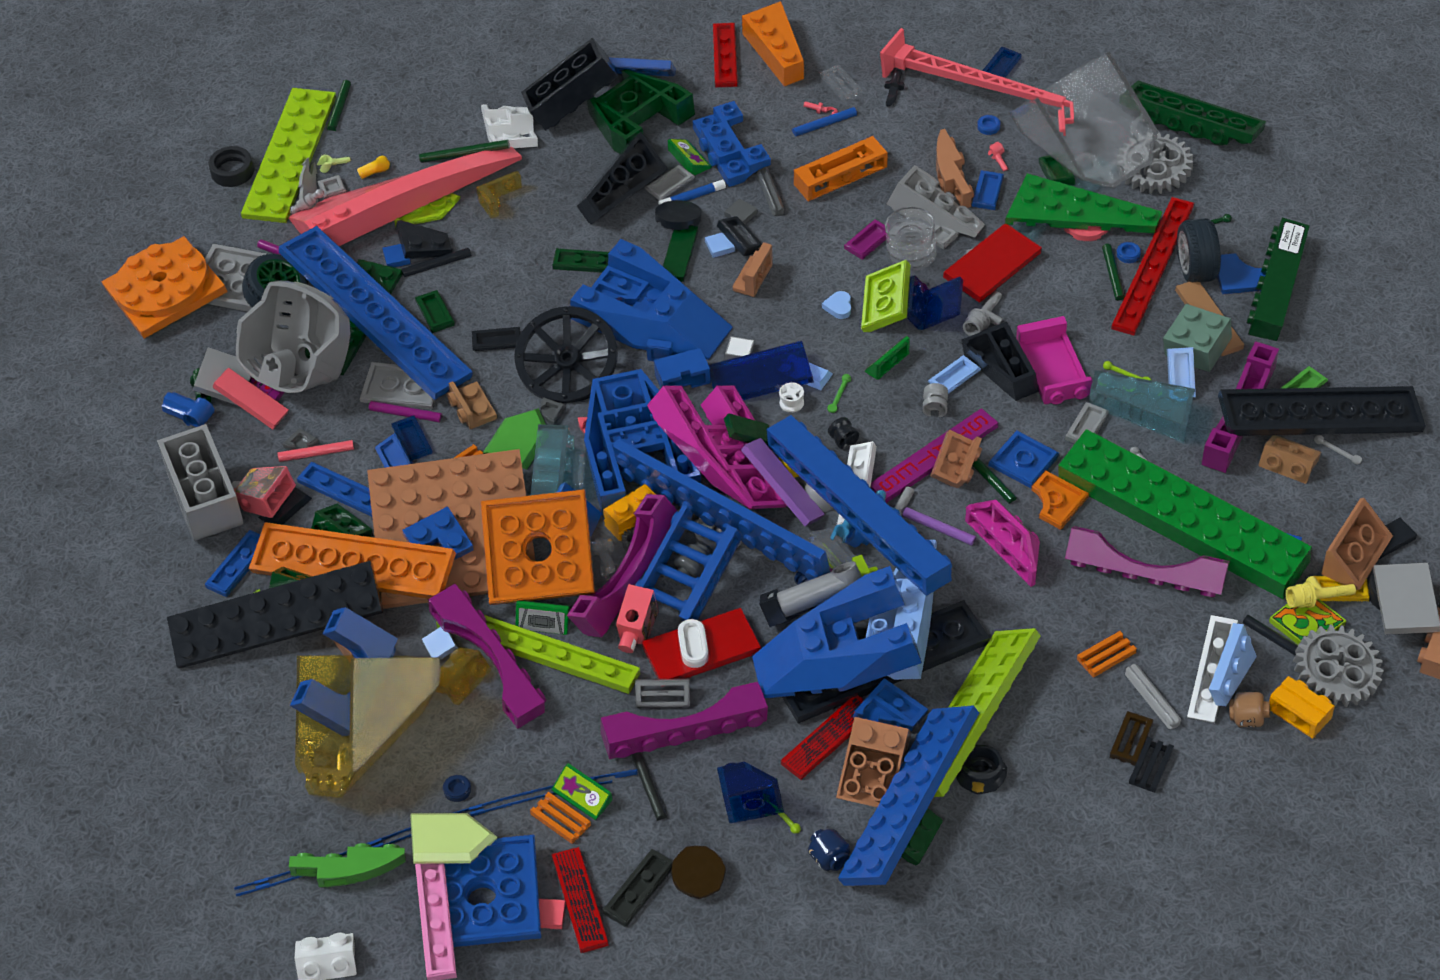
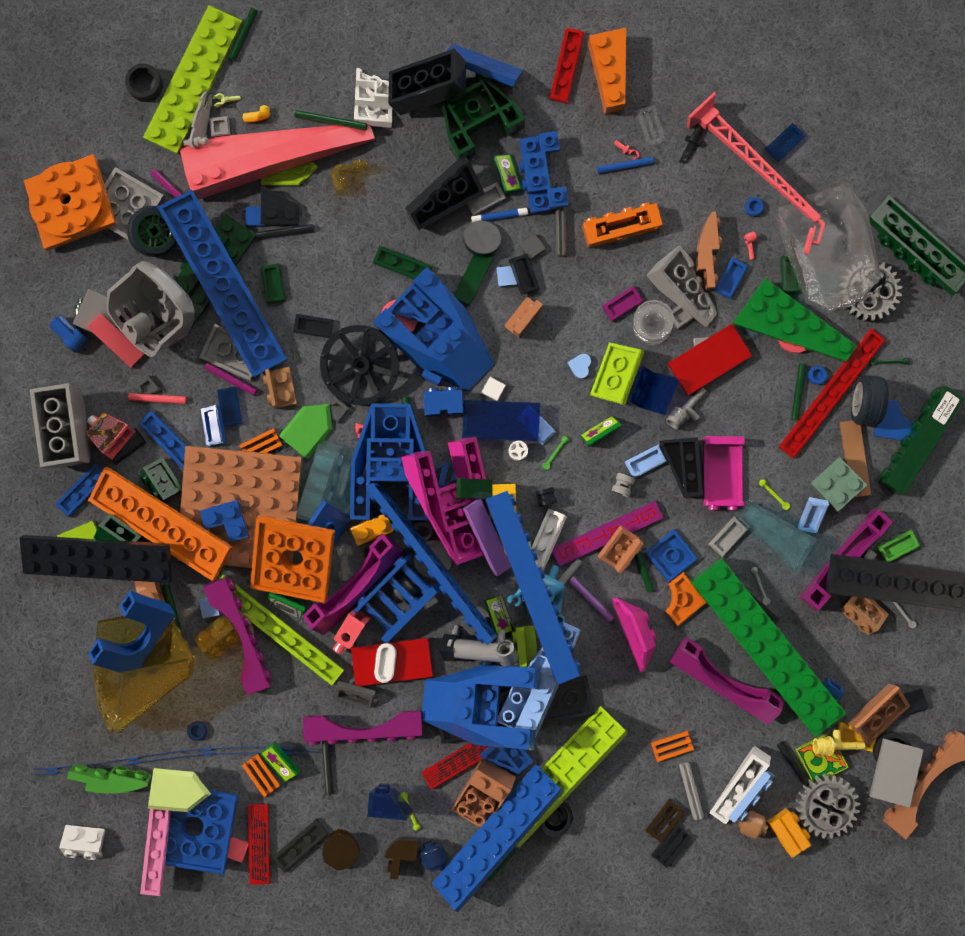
camera: 10 degrees right, 35 degrees up
(781, 852) = (401, 849): none -> dark brown brick

